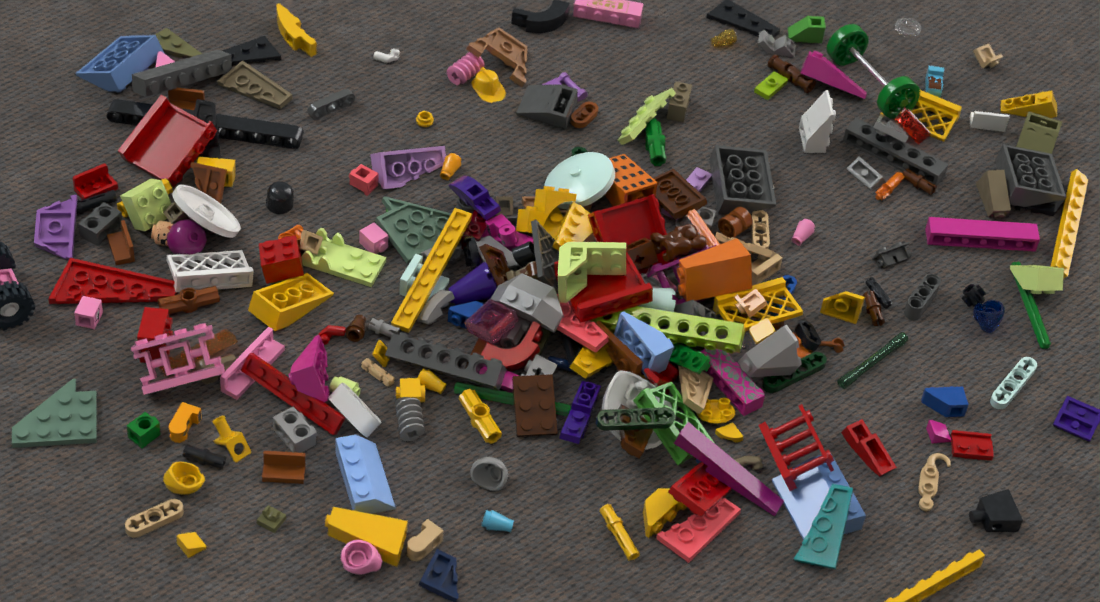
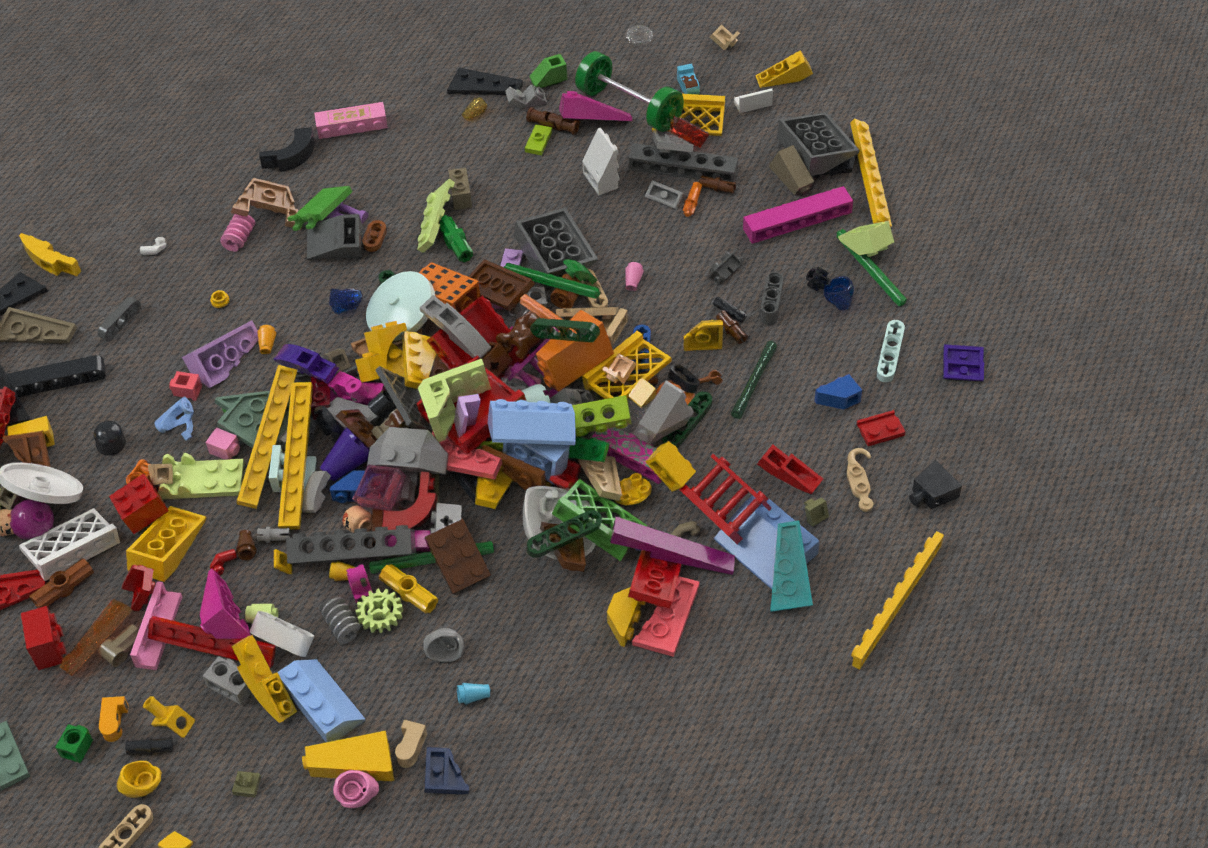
camera: 15 degrees left, 5 degrees up
(182, 374) = (89, 669): bright pink fence -> none
(253, 323) = (140, 583): none -> red bracket
(284, 467) = (236, 724): dark orange panel -> none
(320, 441) = (262, 683): none -> yellow slope
(336, 203) = (168, 419): none -> light blue helmet
(378, 372) = (286, 583): tan axle -> none
(411, 388) = (328, 588): yellow brick -> none
(415, 244) = (266, 437): none -> yellow plate
(439, 395) = (358, 582): none -> dark pink leg
(446, 424) = (379, 610): none -> yellowish green gear
(462, 340) = (357, 518): none -> light nougat head
(488, 86) = (268, 241): yellow piece -> none
(533, 158) = (344, 300): none -> clear blue hair
(546, 72) = (319, 207): none -> bright green tile
(561, 363) = (465, 501): dark blue arm -> none
(580, 412) = (504, 545): dark purple slope -> none
(594, 284) = (466, 412): none -> lavender panel
(615, 525) = (588, 648): yellow pin -> none
(618, 211) = (456, 326): none -> light grey slope
(648, 313) = (531, 422): none -> light blue slope
(728, 209) = (555, 281): none -> green axle
(729, 432) = (653, 507): yellow tile -> none
(730, 254) = (585, 331): none -> dark green beam
(754, 208) = (578, 270): none -> green slope
(759, 401) = (670, 466): none -> yellow brick
(876, 491) = (816, 511): none -> olive tile
(937, 432) = (844, 428): dark pink slope -> none
(1039, 133) = (805, 96): olive slope -> none

